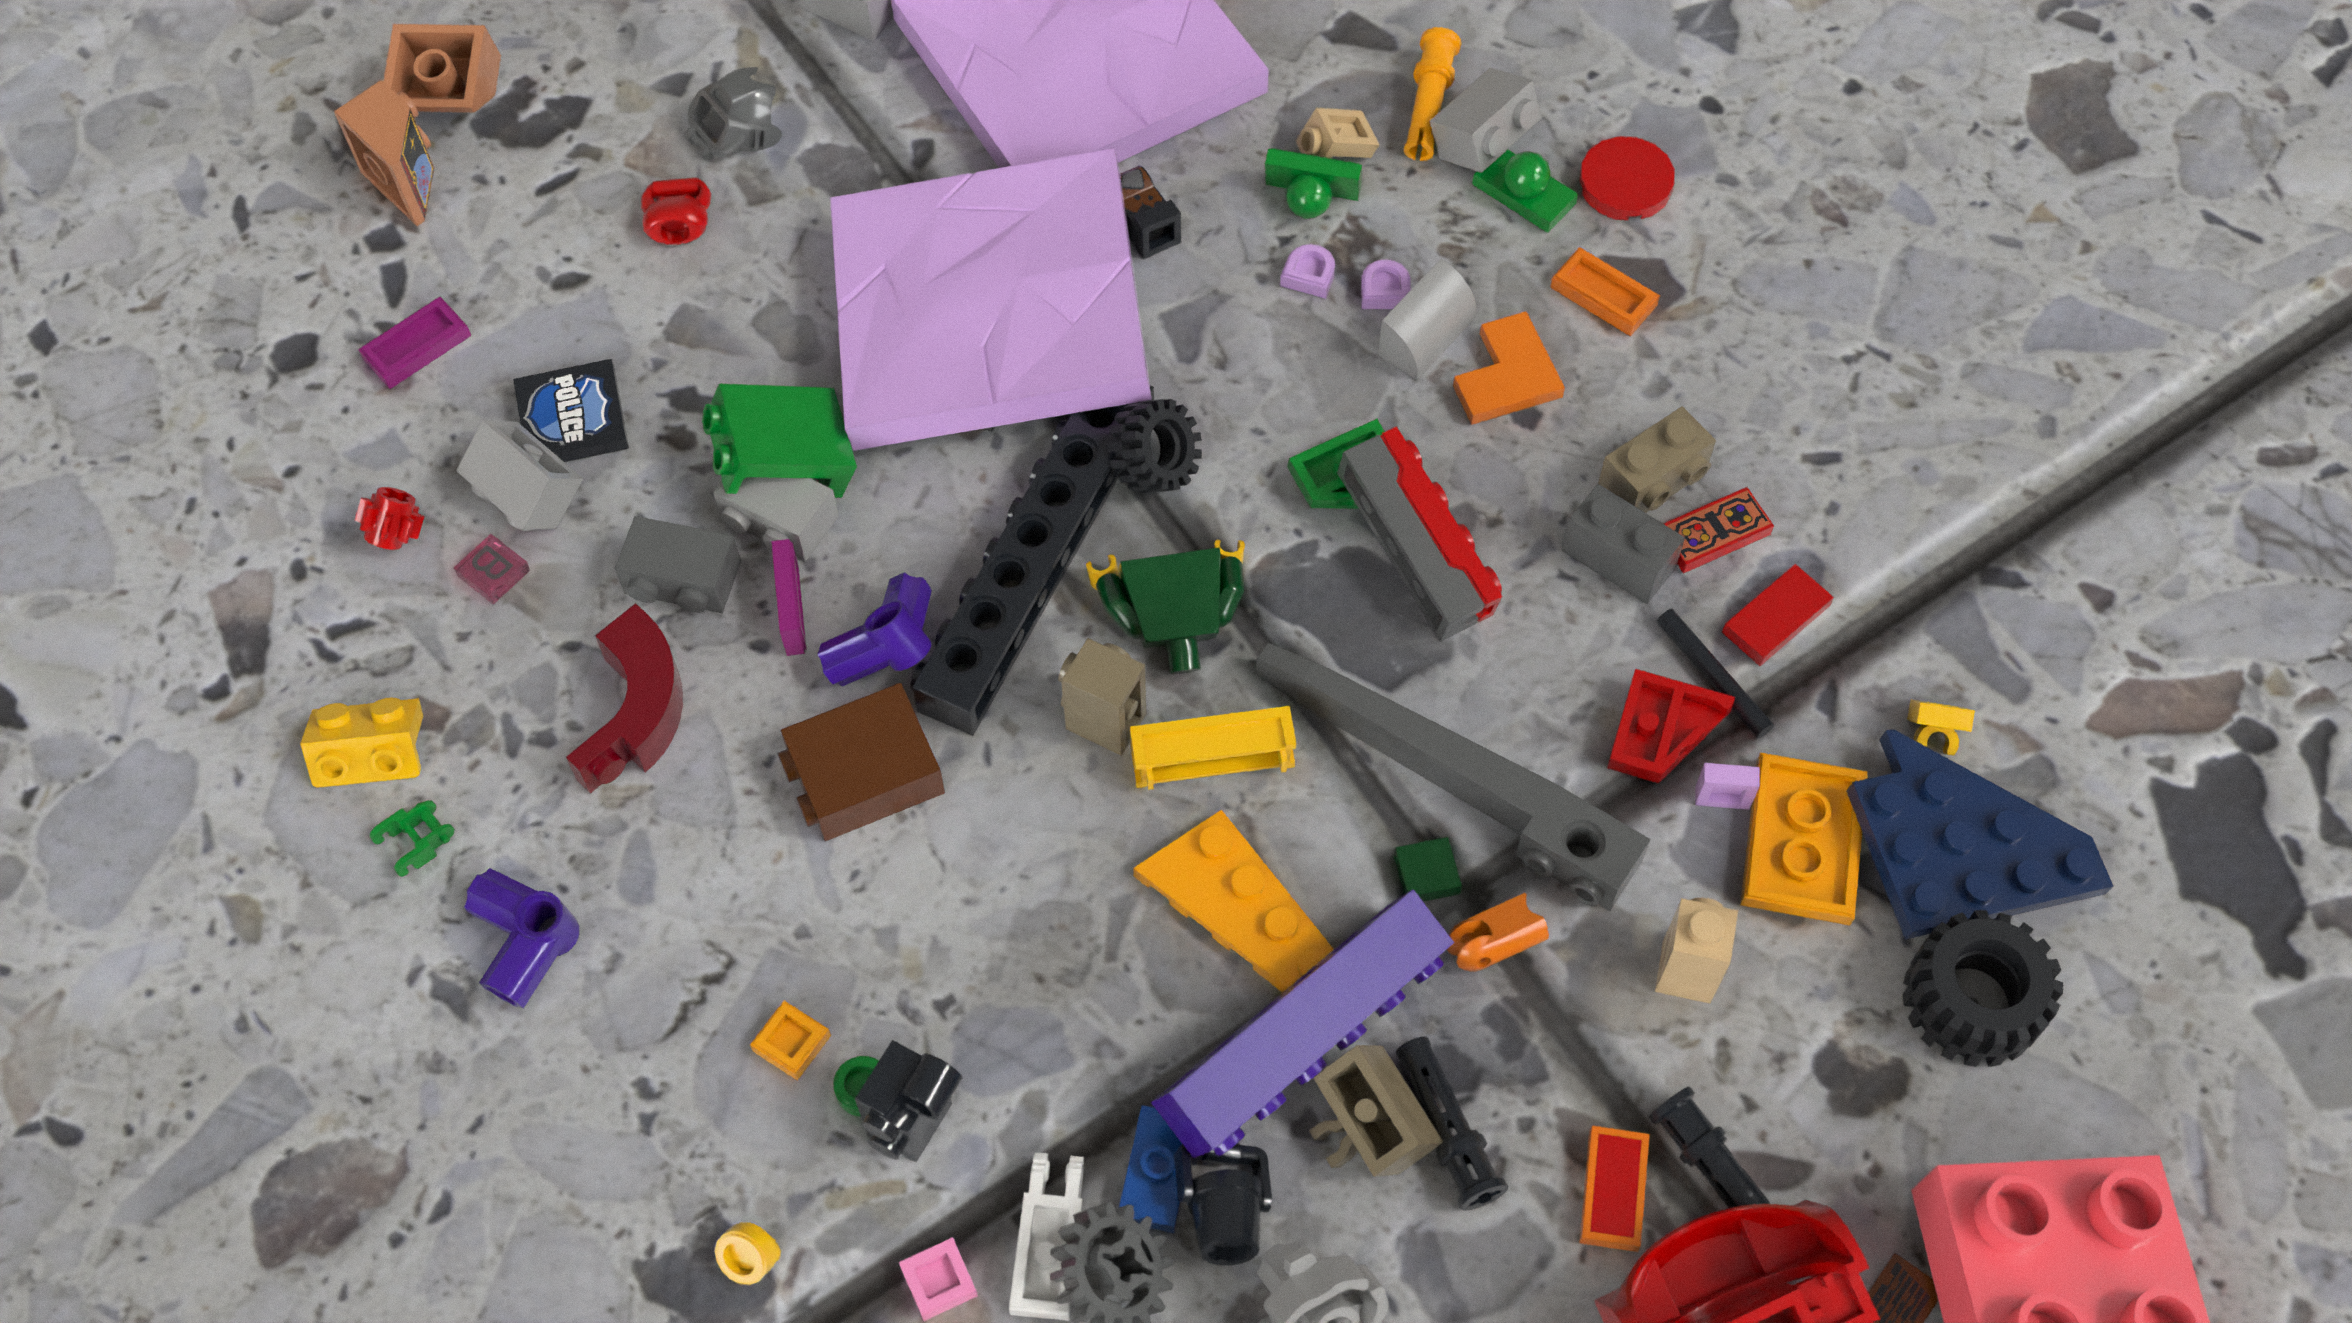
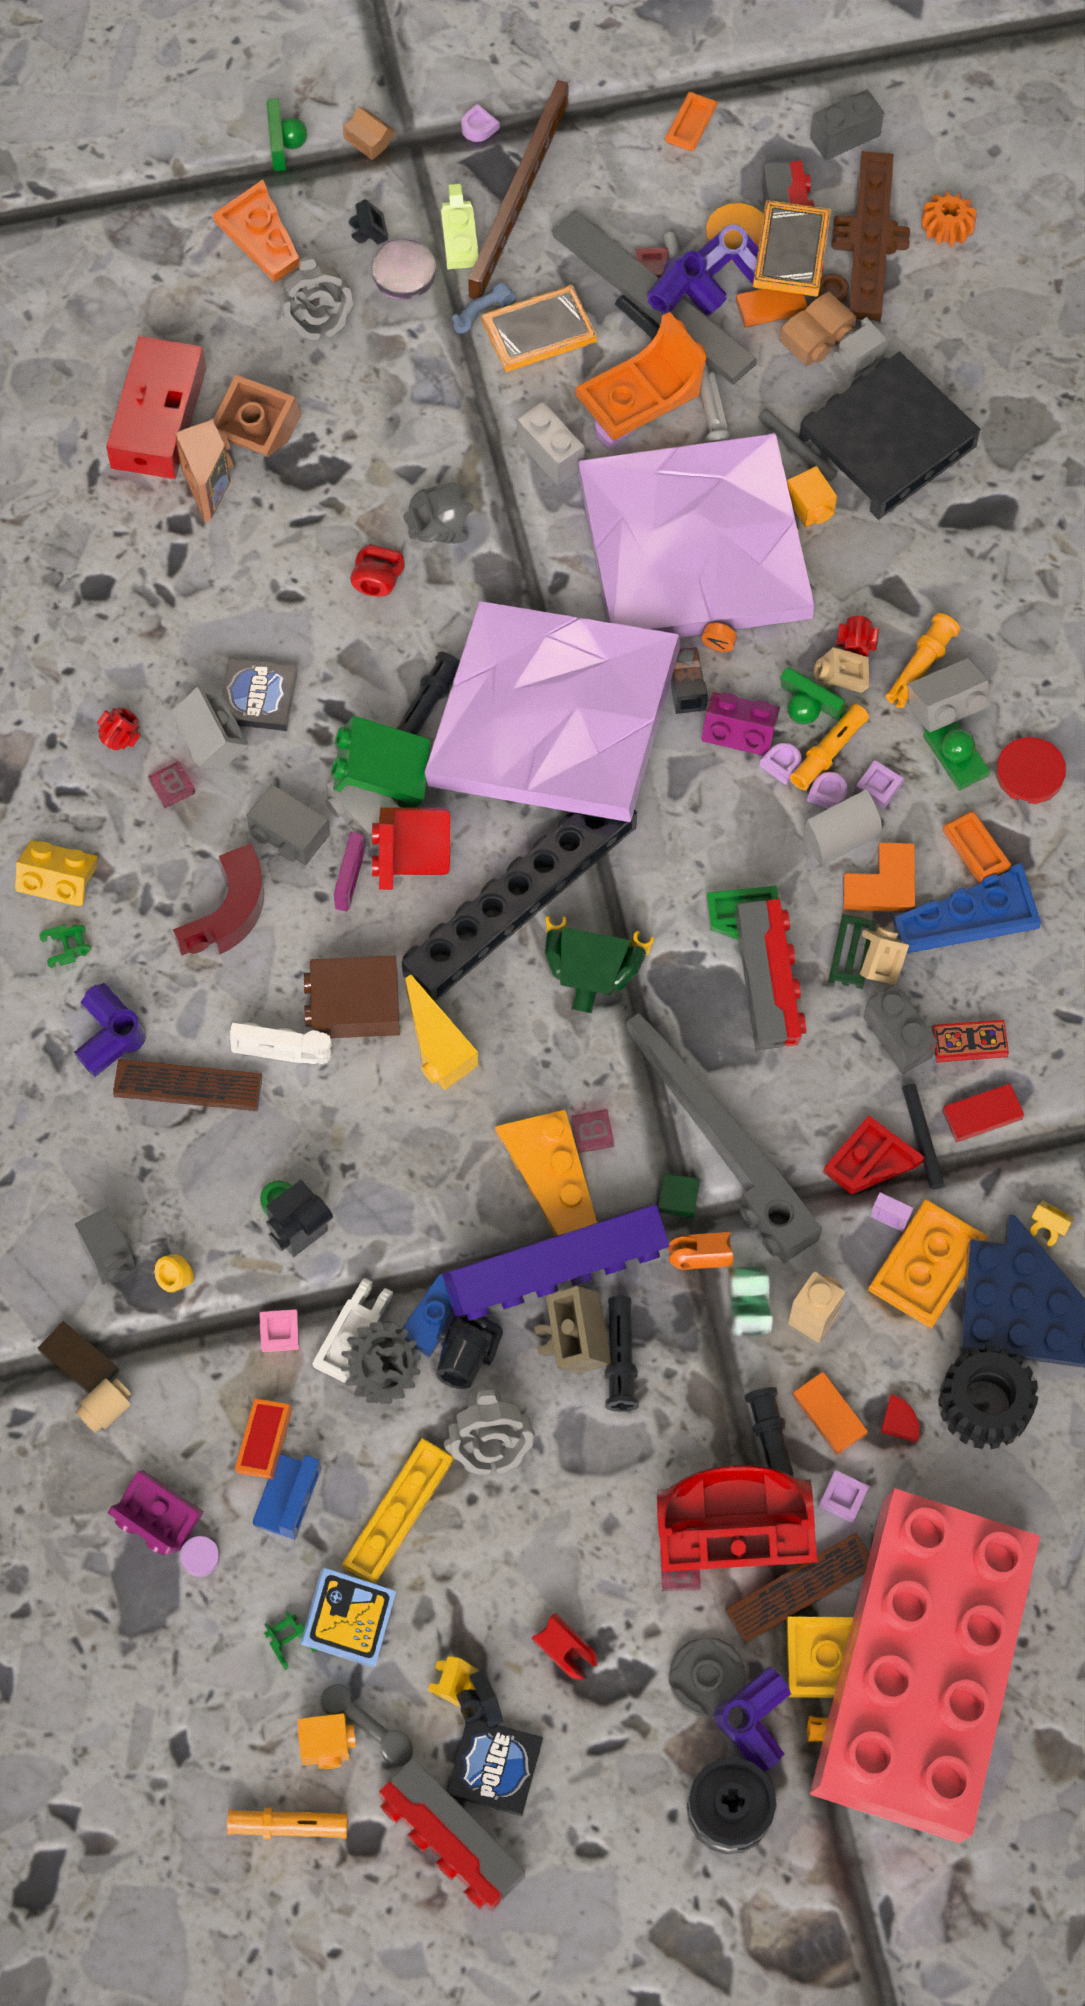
camera: 20 degrees right, 5 degrees up
(292, 84) = (154, 405): none -> brick
(414, 342) = (175, 607): magenta tile -> none
(629, 1251) = (105, 1246): none -> dark grey piece
(665, 970) = (187, 1085): none -> reddish brown tile
(781, 863) = (280, 1044): none -> white hinge
(790, 1040) = (246, 1155): light orange tile -> none
(810, 327) = (433, 687): none -> black pin
(862, 528) = (411, 843): none -> red bracket
(887, 638) = (400, 921): dark purple piece -> none
(1010, 782) = (442, 1047): none -> yellow slope
(1103, 694) = (519, 1009): dark tan brick -> none
(1134, 449) = (636, 860): black tyre -> none
(1161, 146) = (719, 637): none -> orange tile
(1212, 746) = (576, 1067): yellow container -> none
(1235, 241) = (740, 723): none -> magenta bracket
(1270, 825) = (592, 1131): none -> clear pink tile
(1338, 87) = (857, 635): none -> red gear
(1357, 246) = (820, 757): none -> light orange pin
(1451, 247) = (880, 783): none -> lavender tile
(1515, 504) = (847, 977): none -> dark green tile
(1558, 458) = (883, 956): none -> tan bracket
(1596, 980) = (749, 1301): none -> clear green brick
(1614, 1188) = (704, 1431): red tile -> none
(1649, 366) = (985, 911): none -> blue wing
(1659, 461) = (948, 983): dark tan brick -> none
(1774, 1095) = (829, 1413): none -> orange tile
(1855, 1201) = (843, 1496): none -> lavender tile
(1874, 1067) = (900, 1420): none -> red tile

